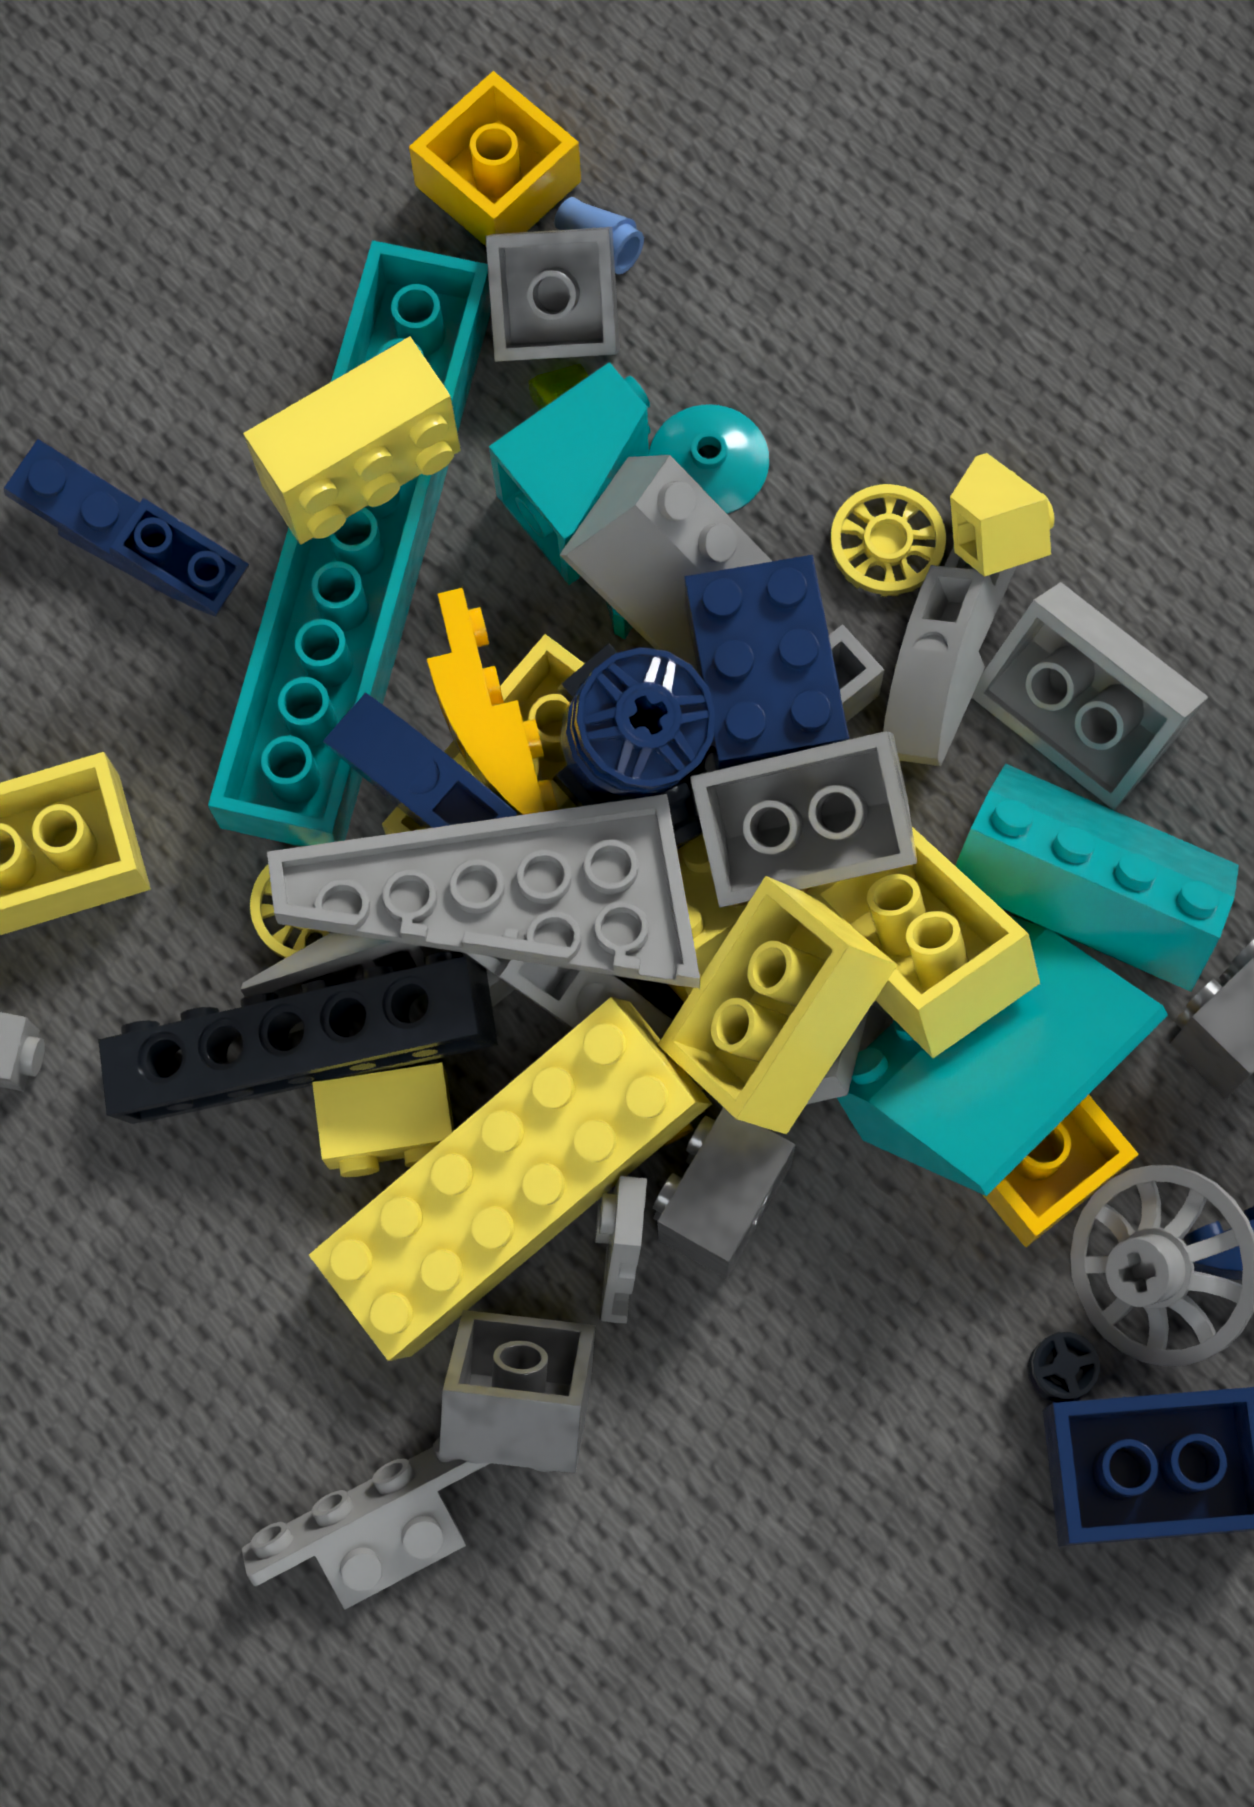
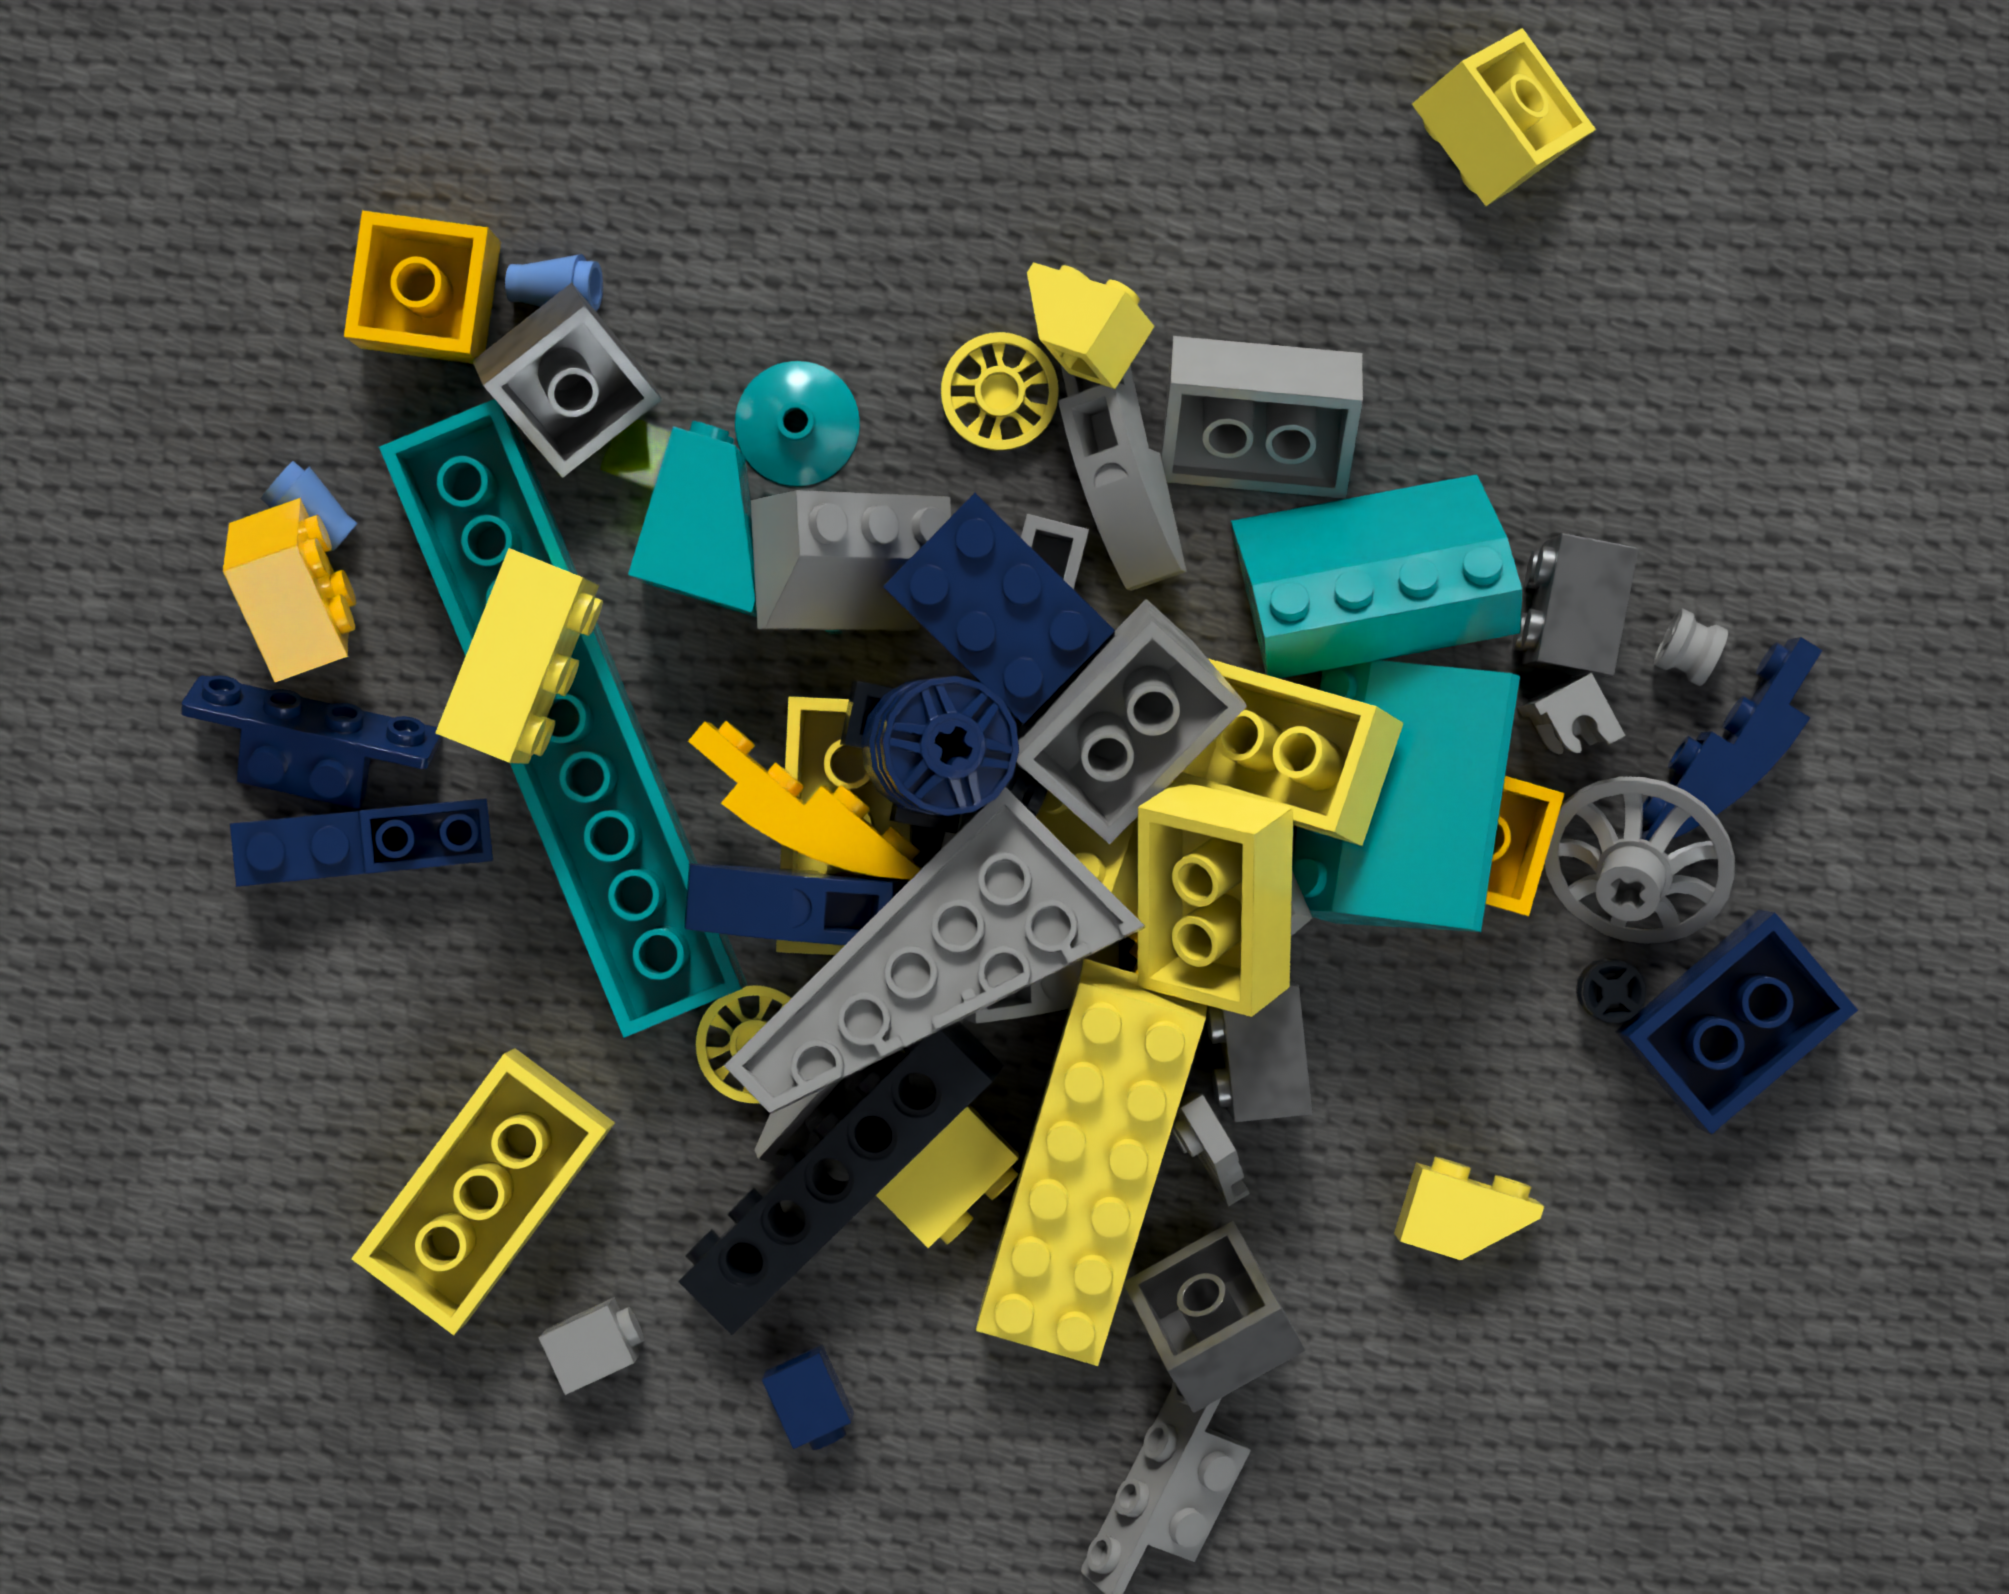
camera: 45 degrees left, 15 degrees up
(128, 1222) = (809, 1399): none -> dark blue brick
(144, 436) = (308, 743): none -> dark blue bracket
(221, 296) = (289, 588): none -> yellow brick
(286, 264) = (317, 499): none -> medium blue cone
(796, 1467) = (1459, 1214): none -> light yellow slope
(1191, 1091) = (1572, 710): none -> light grey hinge

